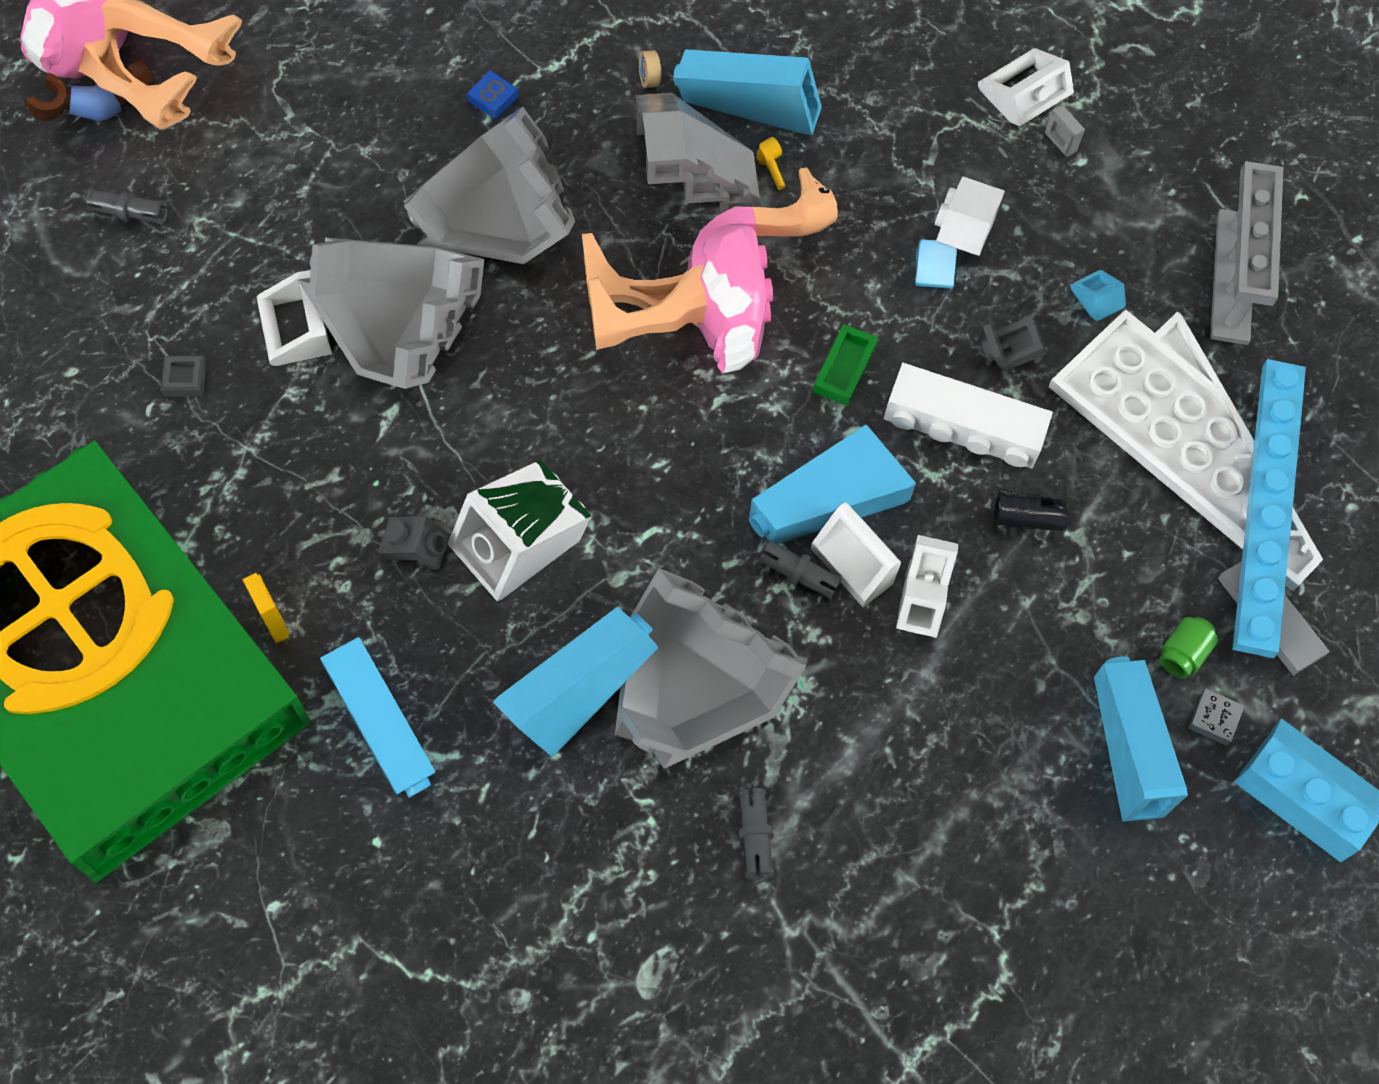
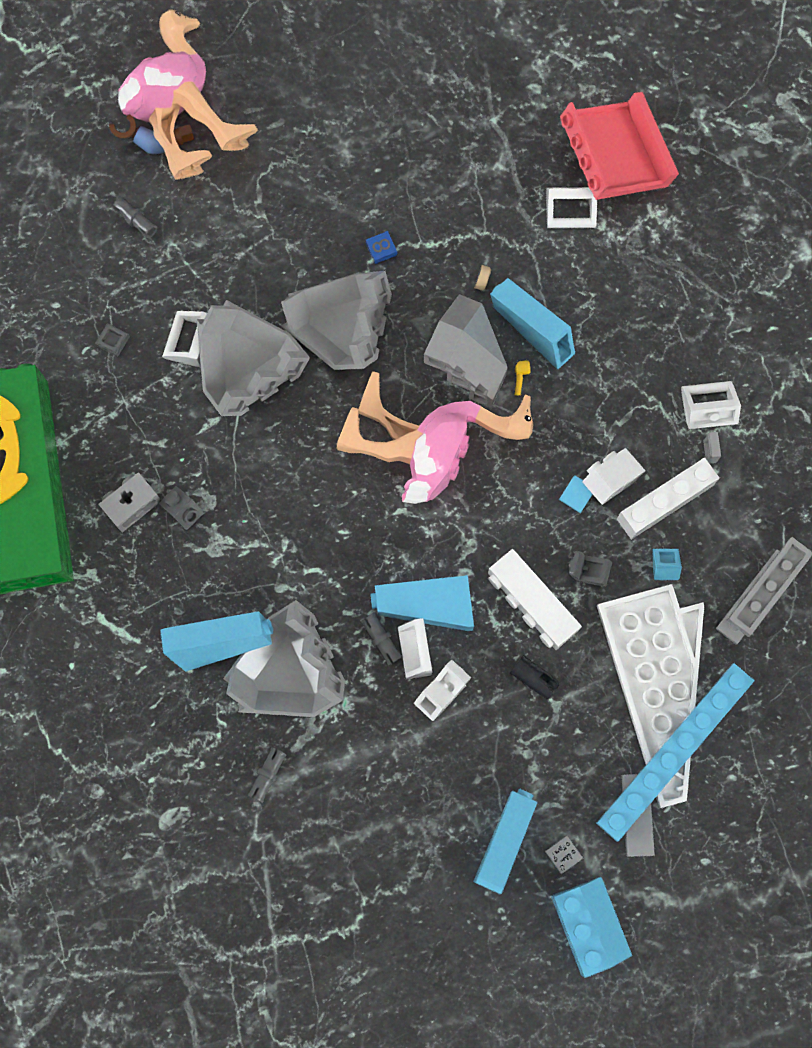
camera: 35 degrees right, 10 degrees up
(266, 607) = (78, 507): yellow tile -> none
(335, 591) = (142, 498): none -> light grey brick
(378, 717) = (104, 599): medium azure slope -> none
(517, 527) = (240, 530): white slope -> none
(845, 365) = (485, 528): green tile -> none
(1051, 213) = (667, 498): none -> white brick
(1188, 647) = (572, 807): bright green brick -> none

